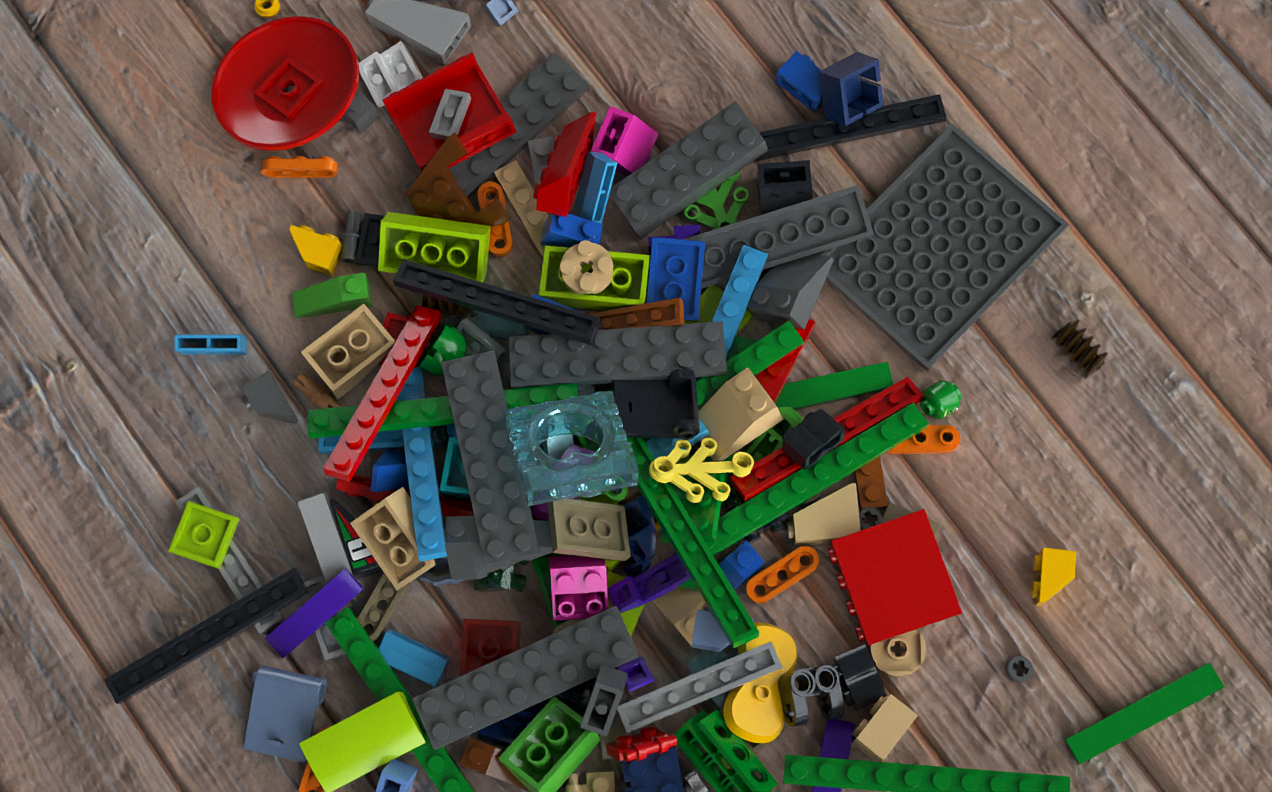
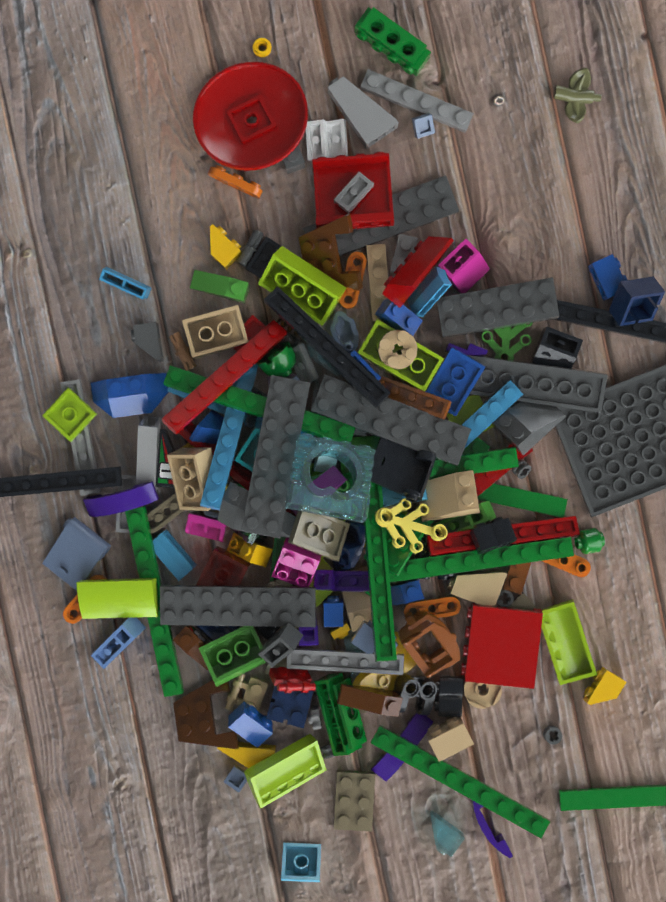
camera: 15 degrees right, 15 degrees up
(271, 476) = (129, 394): none -> blue wedge
(441, 601) = (205, 527): none -> dark pink hinge
(511, 604) = (256, 553): none -> yellow slope
(512, 278) = (345, 331): none -> sand blue arm
(655, 631) = (333, 611): none -> blue brick
(677, 656) = (340, 632): none -> yellow plate
(754, 720) = (370, 699): none -> reddish brown slope
(812, 350) = (523, 469): none -> dark grey bush
(814, 592) = (417, 627): none -> dark orange animal
(977, 539) = (567, 643): none -> lime slope

